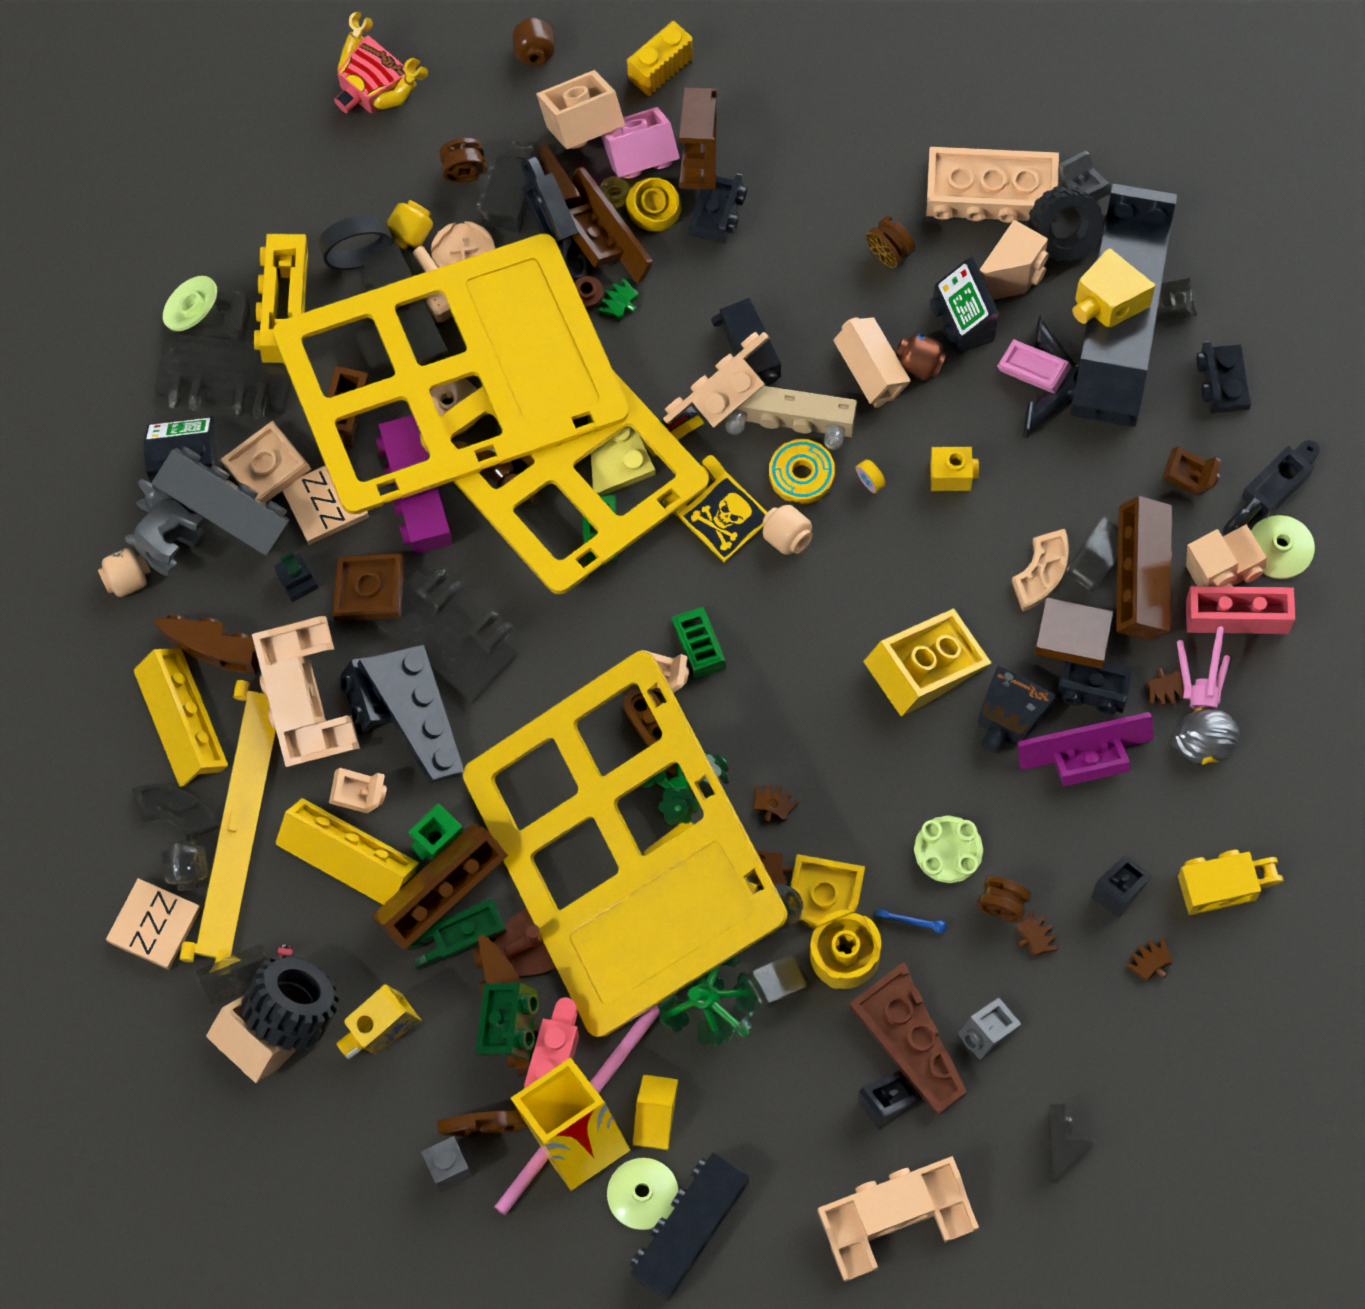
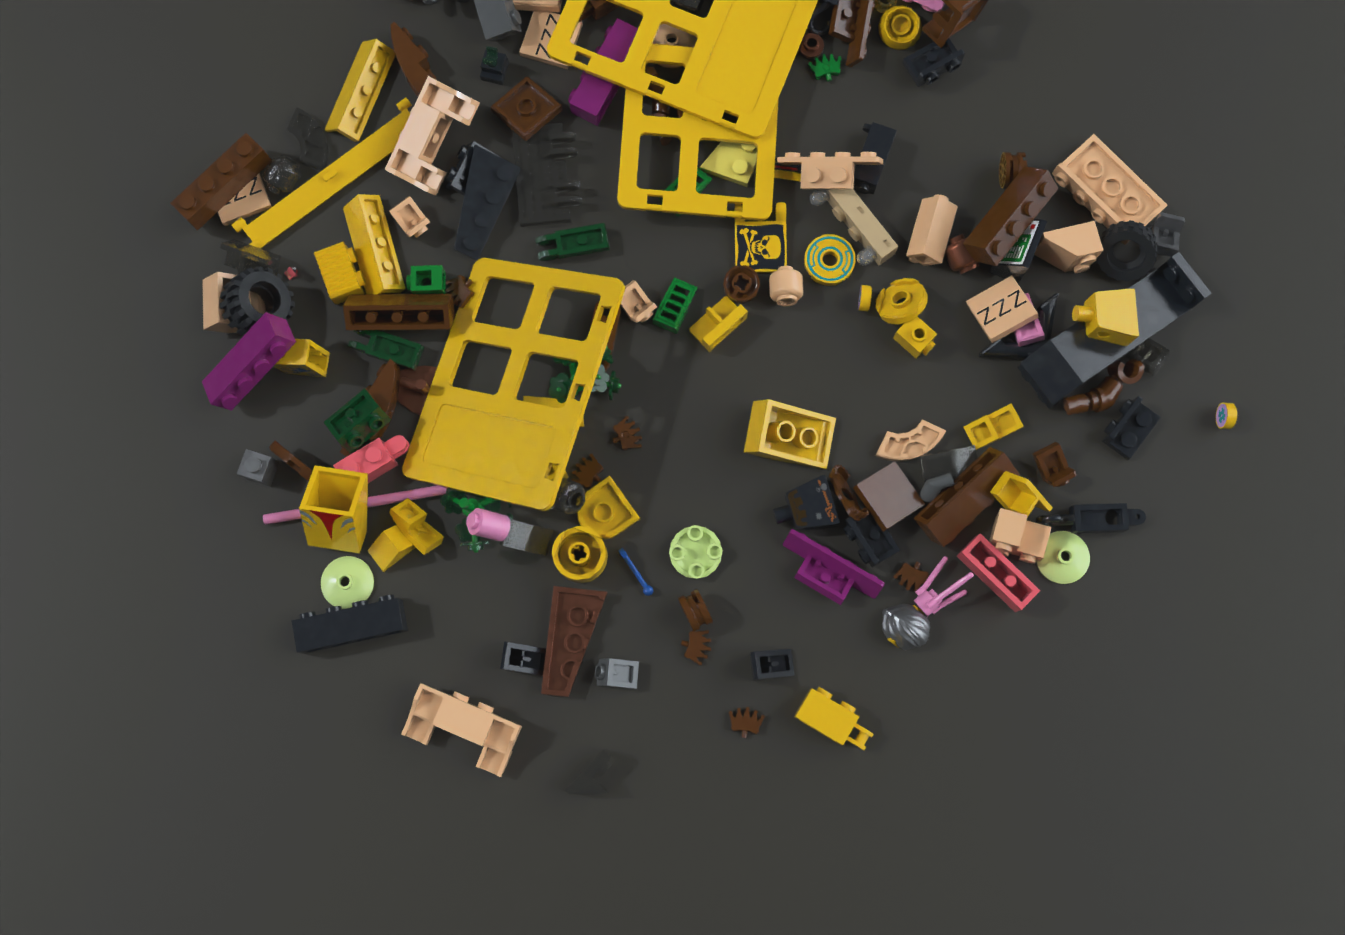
camera: 45 degrees right, 10 degrees up
(132, 923) = (221, 181): none -> reddish brown brick
(339, 904) = (339, 272): none -> yellow brick
(341, 1065) = (248, 361): none -> magenta brick
(476, 813) = (460, 290): none -> reddish brown piece
(543, 669) = (574, 242): none -> dark green hinge
(647, 1072) = (412, 524): none -> yellow slope
(737, 994) = (488, 524): none -> bright pink brick
(743, 565) = (741, 284): none -> reddish brown wheel
(755, 622) = (718, 323): none -> yellow panel
(922, 453) = (909, 309): none -> yellow tile
(934, 281) = (1010, 215): none -> reddish brown brick
(1006, 373) = (1002, 309): none -> light nougat tile
(1011, 659) = (839, 478): none -> reddish brown piece
(1103, 485) = (993, 426): none -> yellow slope
(1105, 586) = (933, 487): none -> dark grey arm
(1172, 362) = (1108, 390): none -> reddish brown piece
(1189, 520) = (1018, 494): none -> yellow panel
(1295, 291) = (1226, 415): none -> tile

